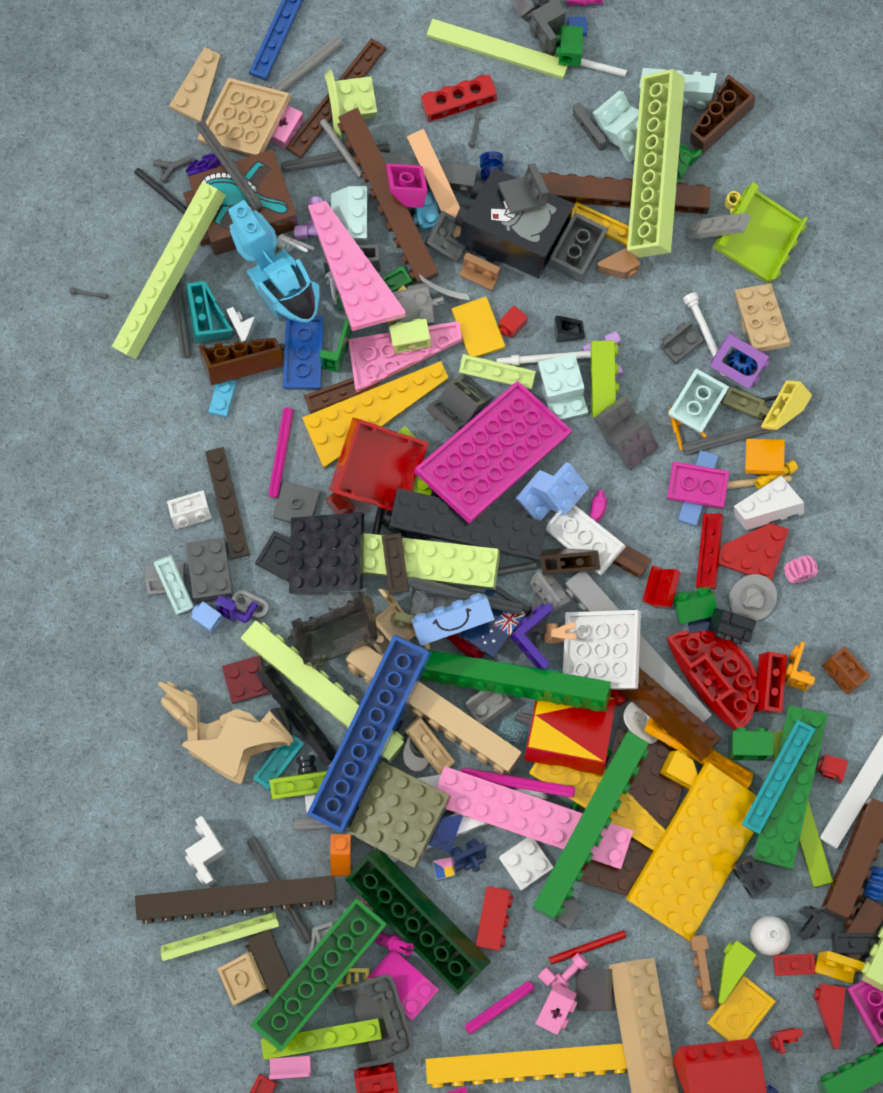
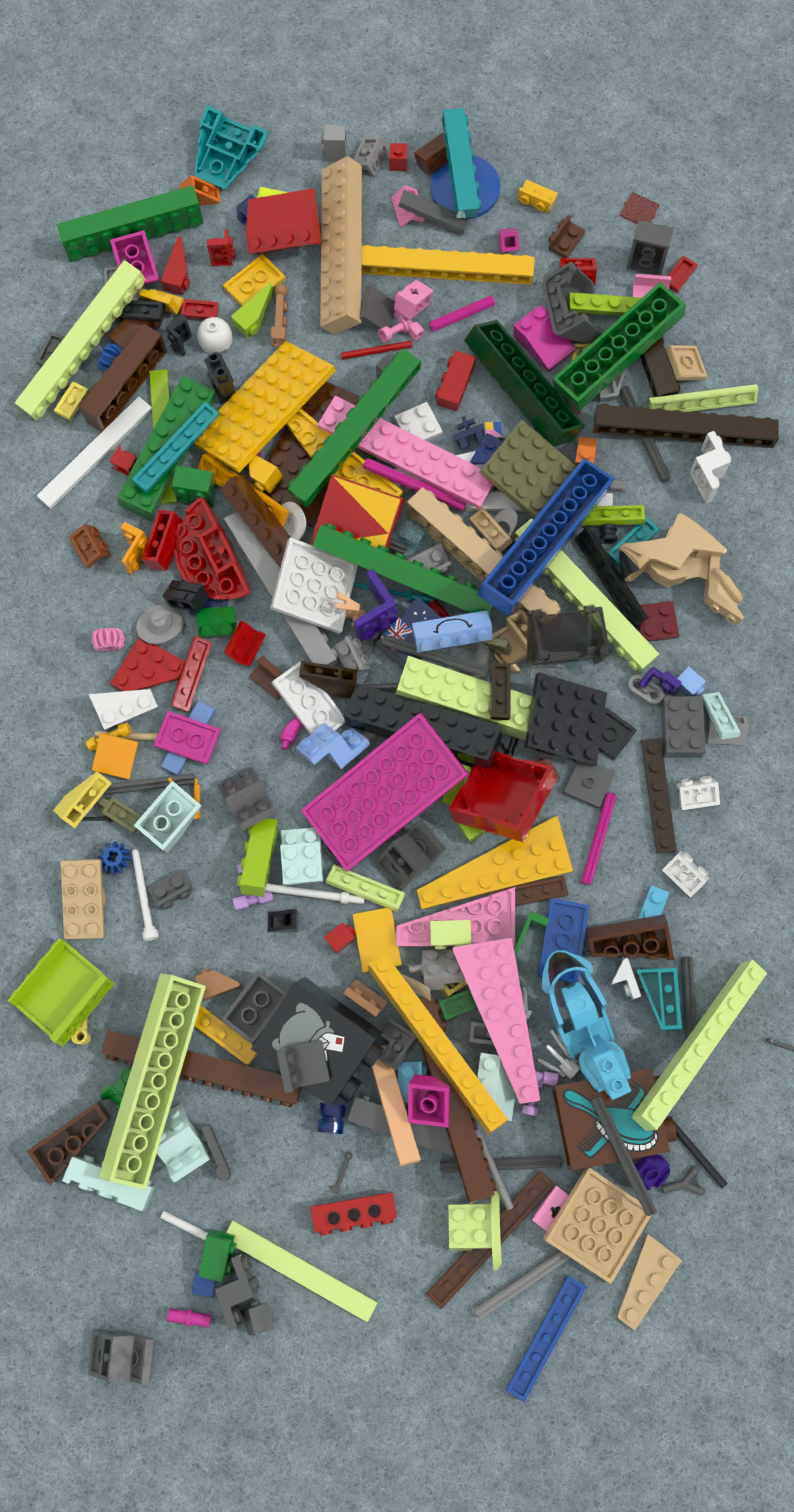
camera: 170 degrees left, 0 degrees up
(193, 431) = (686, 873): none -> white bracket
(394, 944) = (546, 368): dark pink pin -> none
(408, 233) = (437, 1044): none -> yellow brick
(718, 226) = (103, 999): light grey plate -> none
(759, 356) = (127, 868): medium lavender panel -> none

